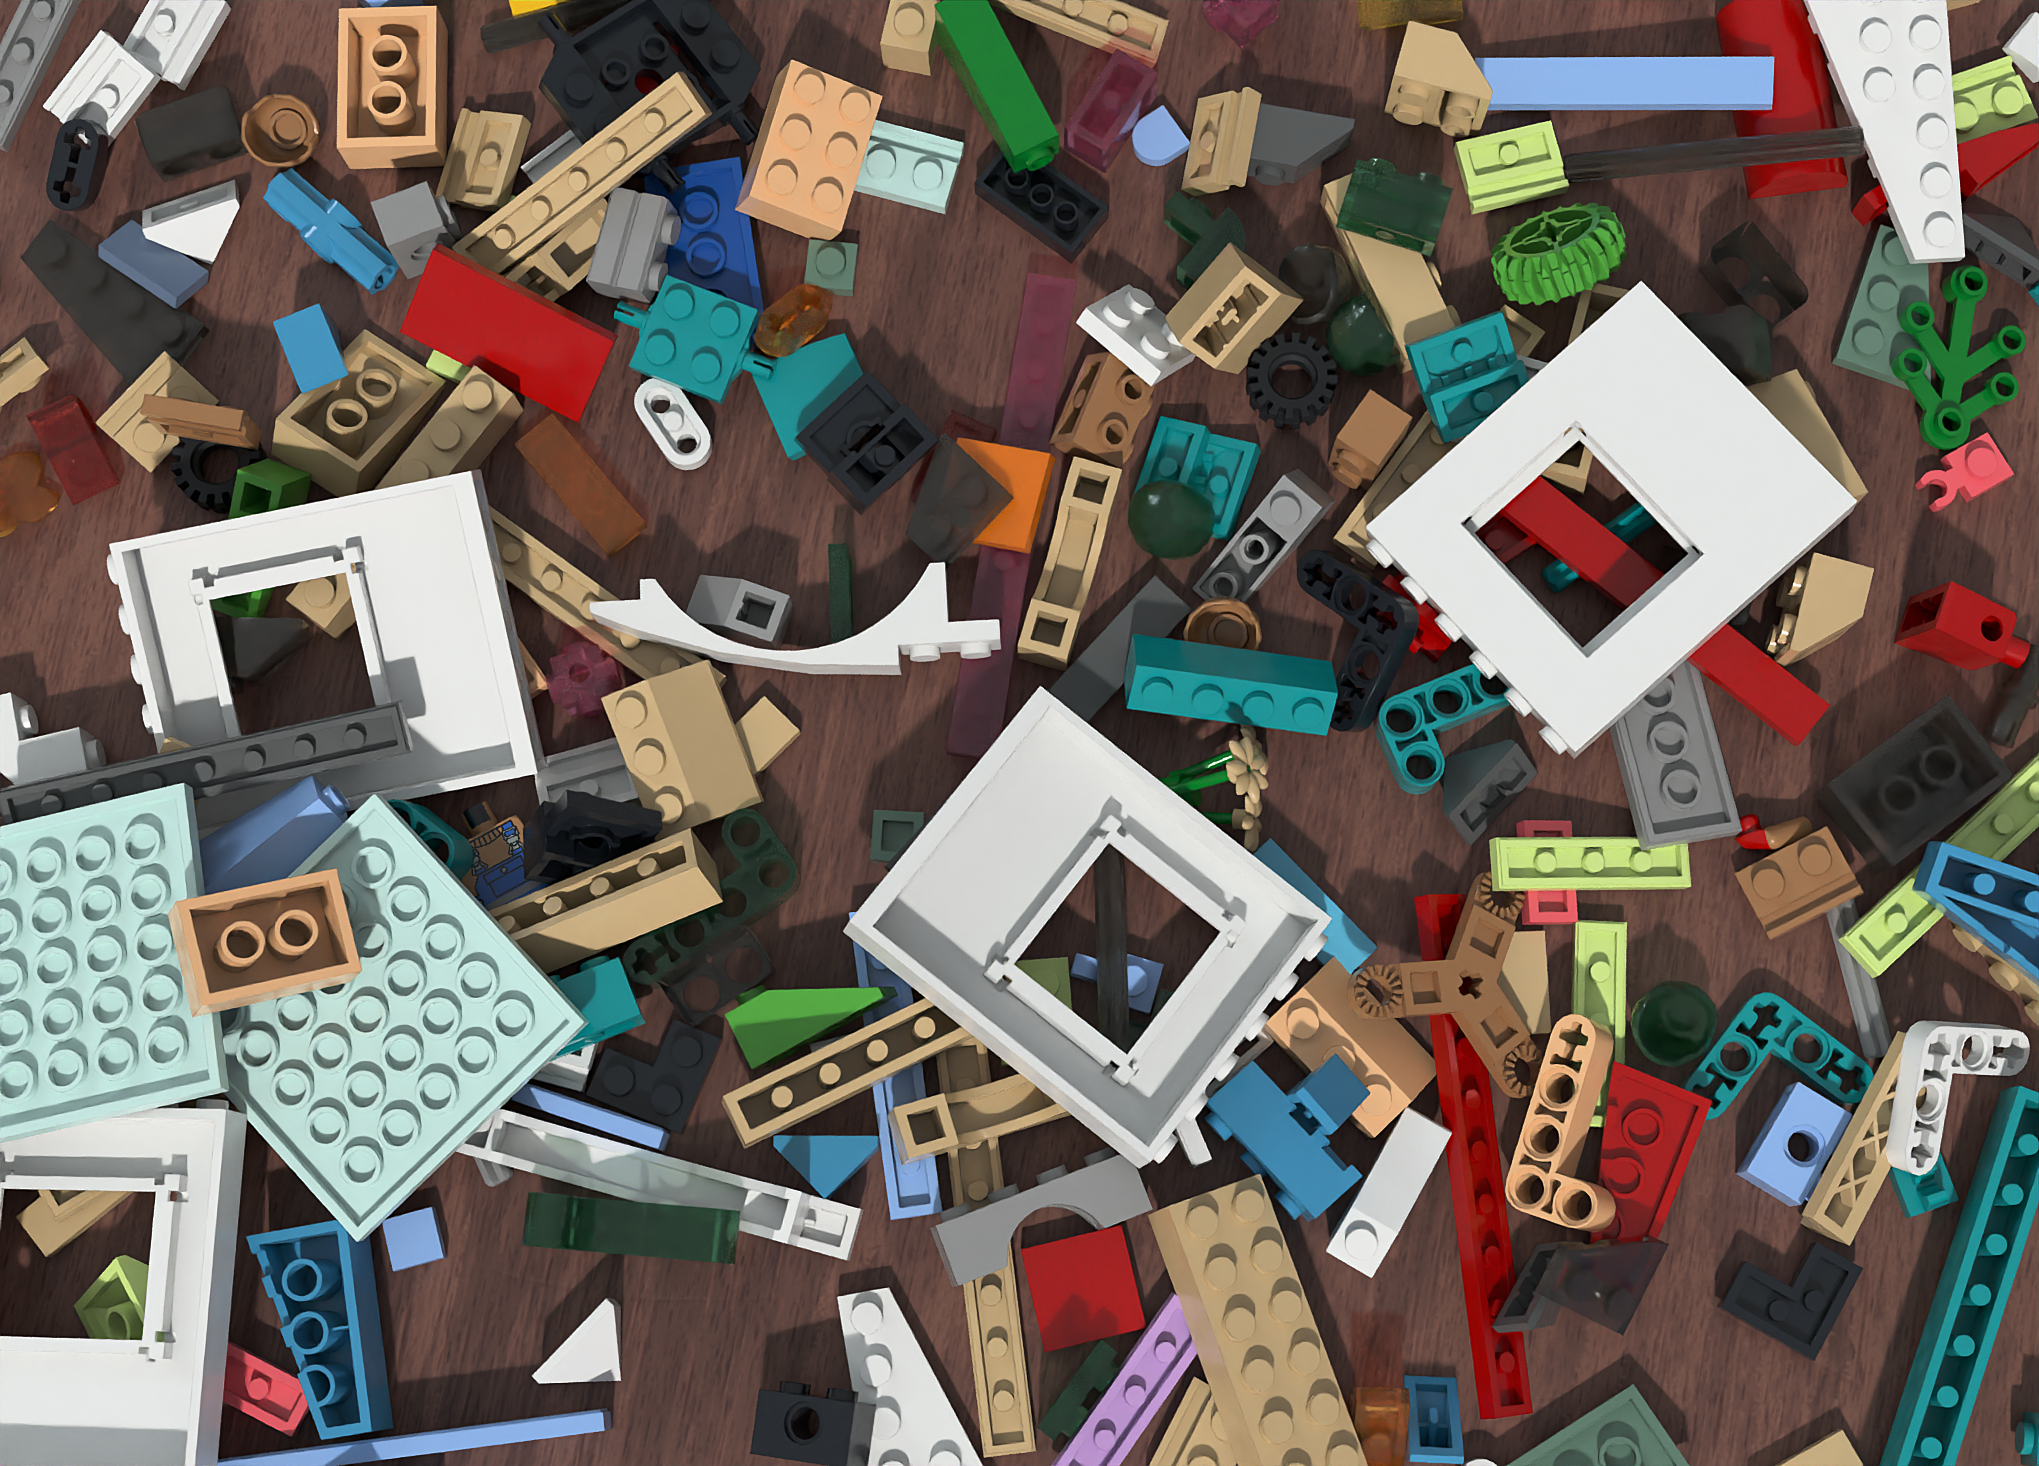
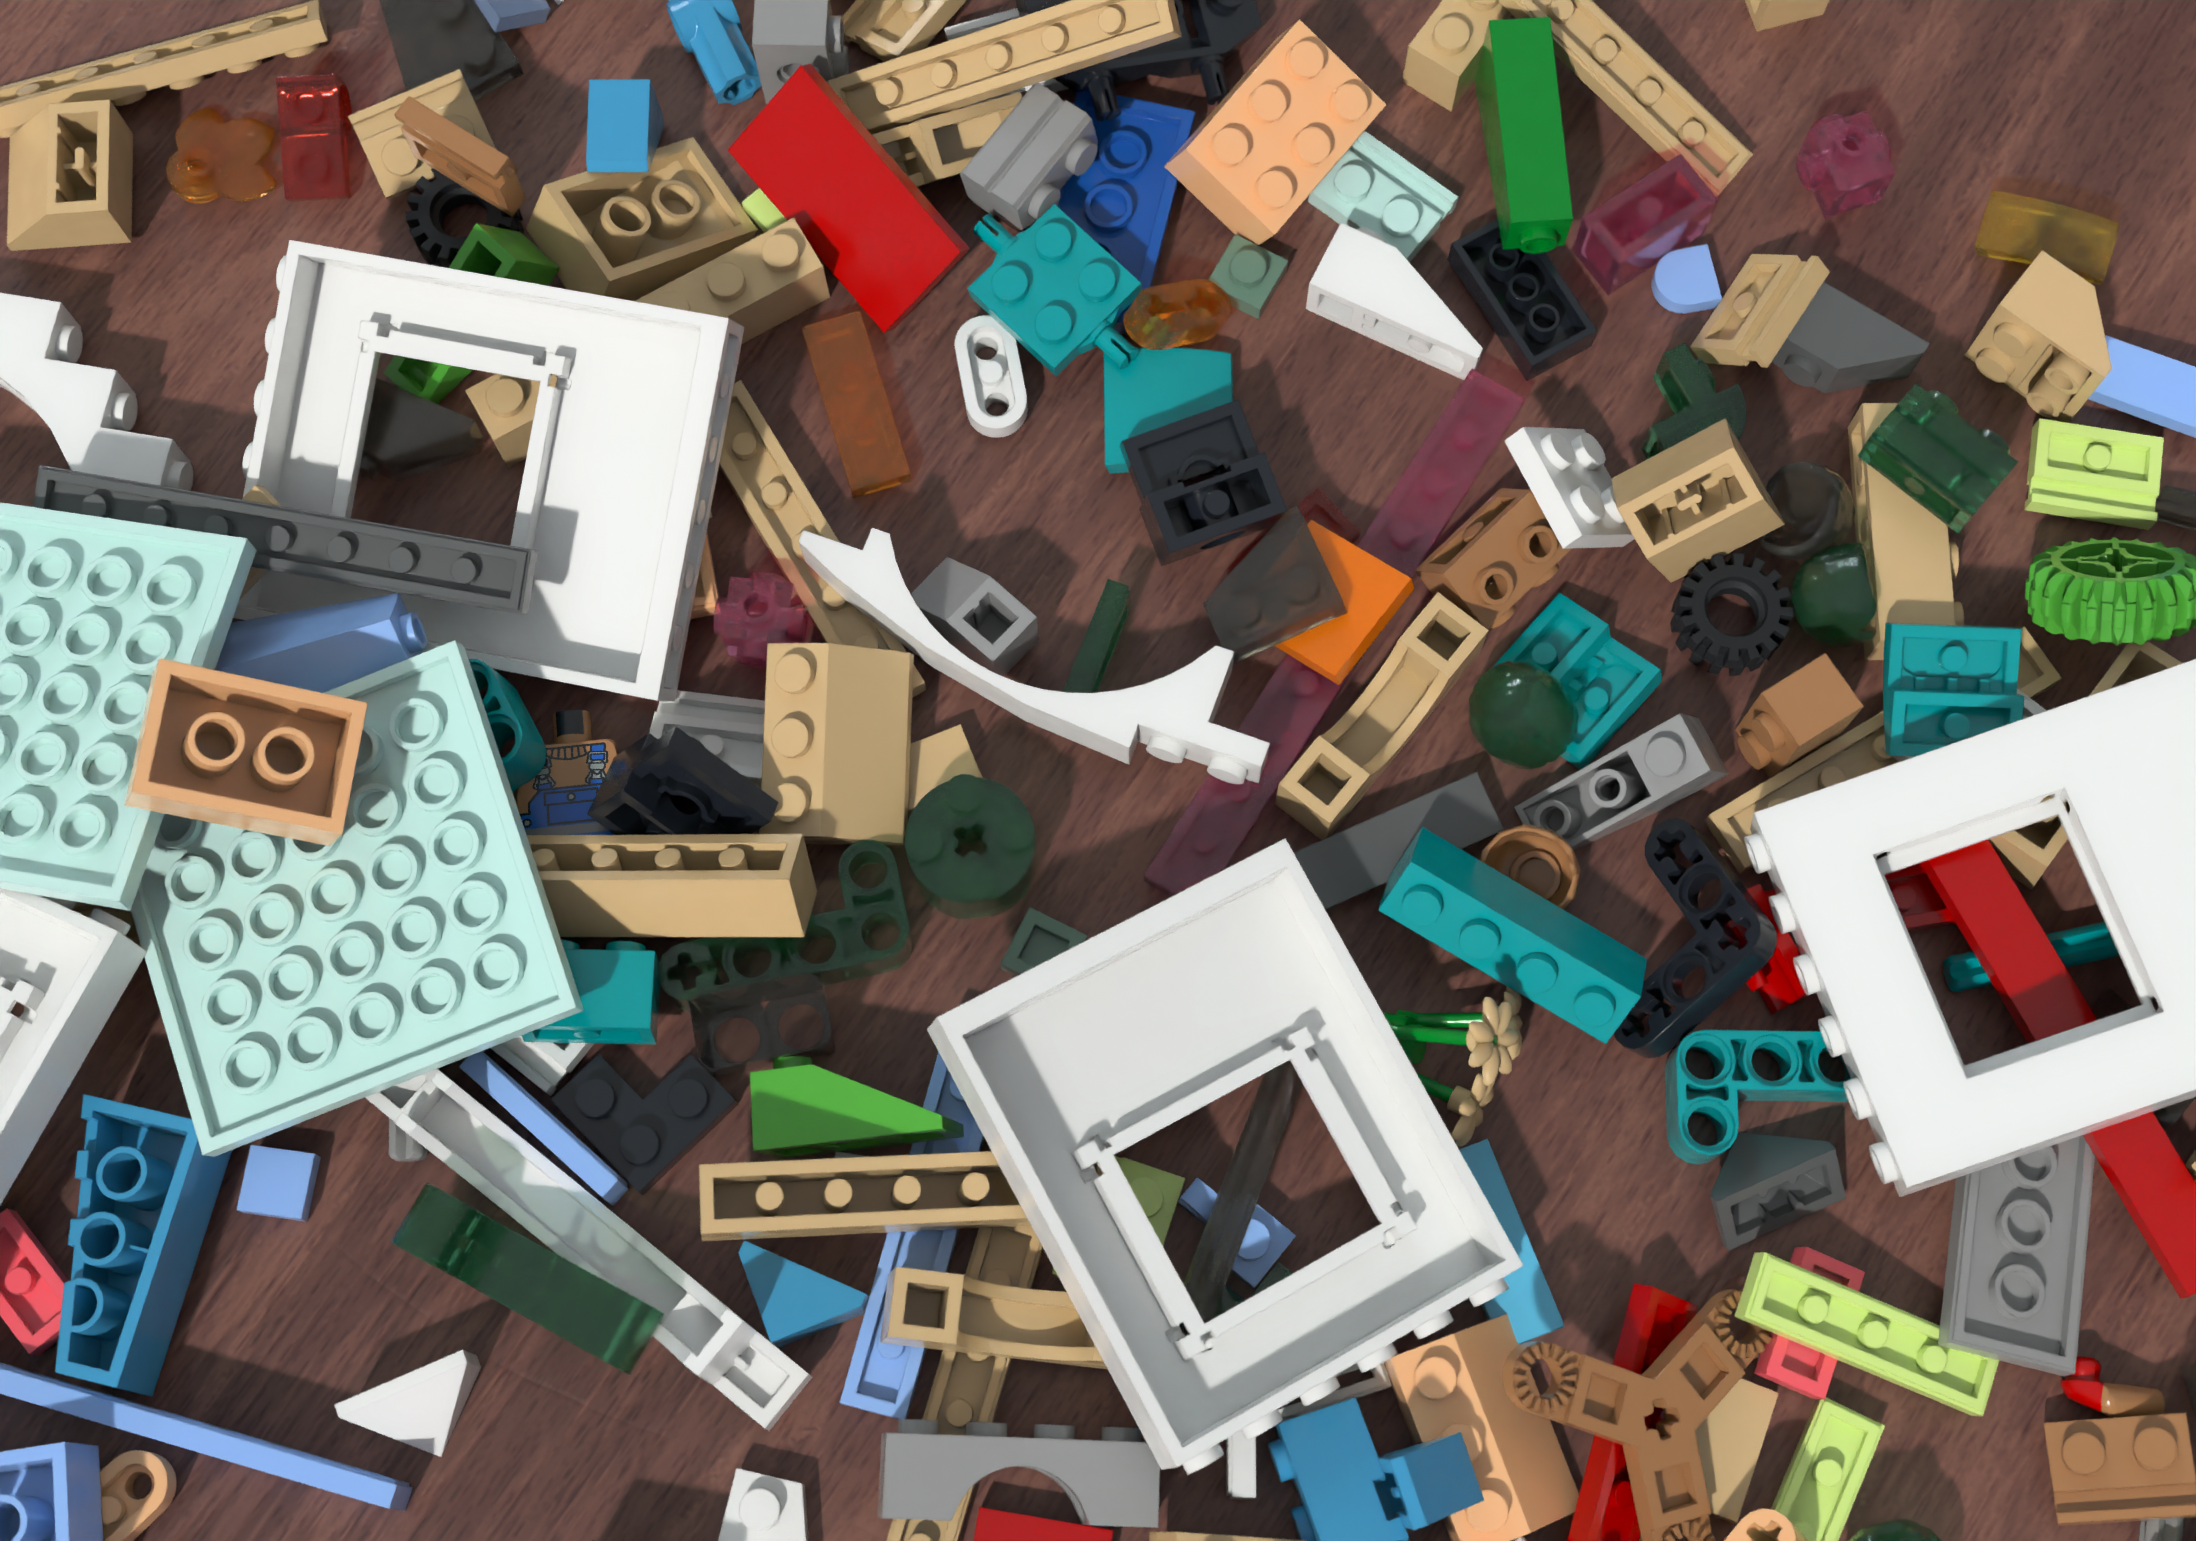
camera: 20 degrees right, 5 degrees down
(799, 758) = (963, 812): none -> clear green brick
(937, 243) = (1383, 297): none -> white slope

